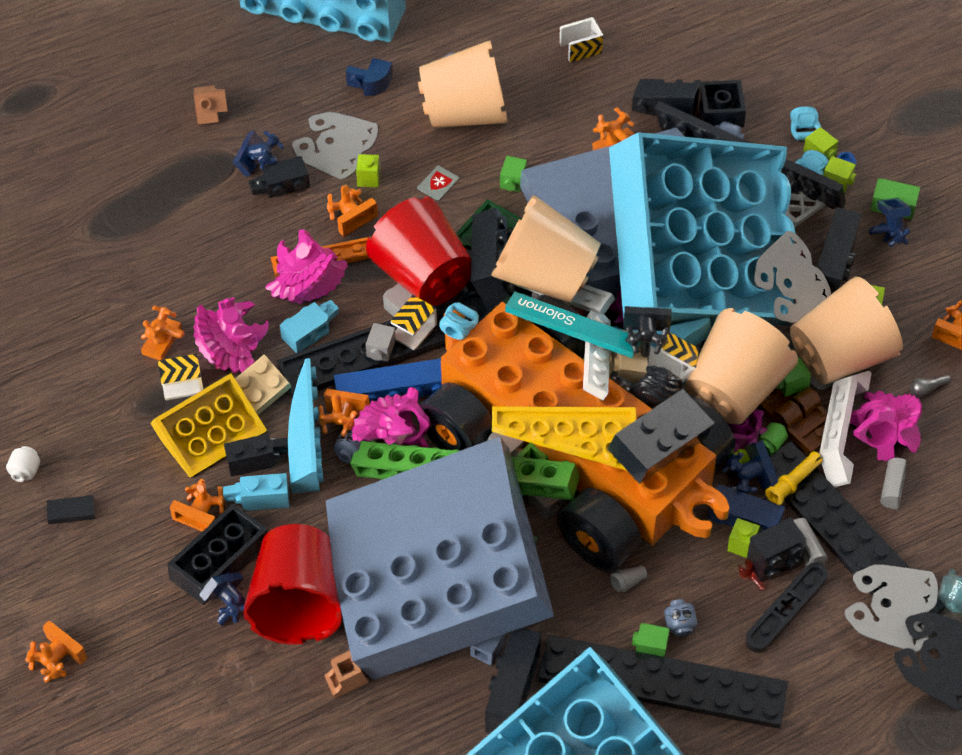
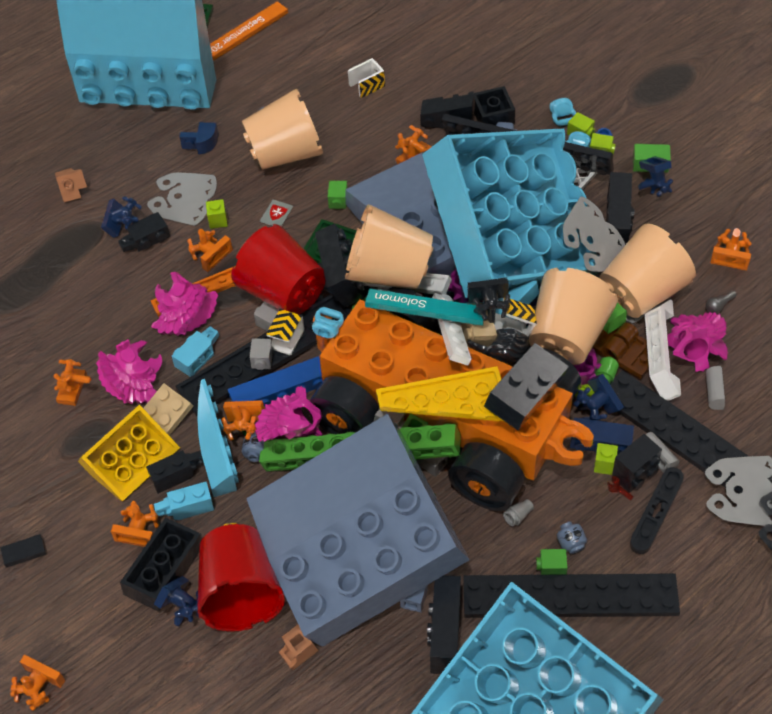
camera: 10 degrees left, 0 degrees up
(180, 376) = (95, 416): piece -> none
(788, 483) = (631, 405): yellow pin -> none

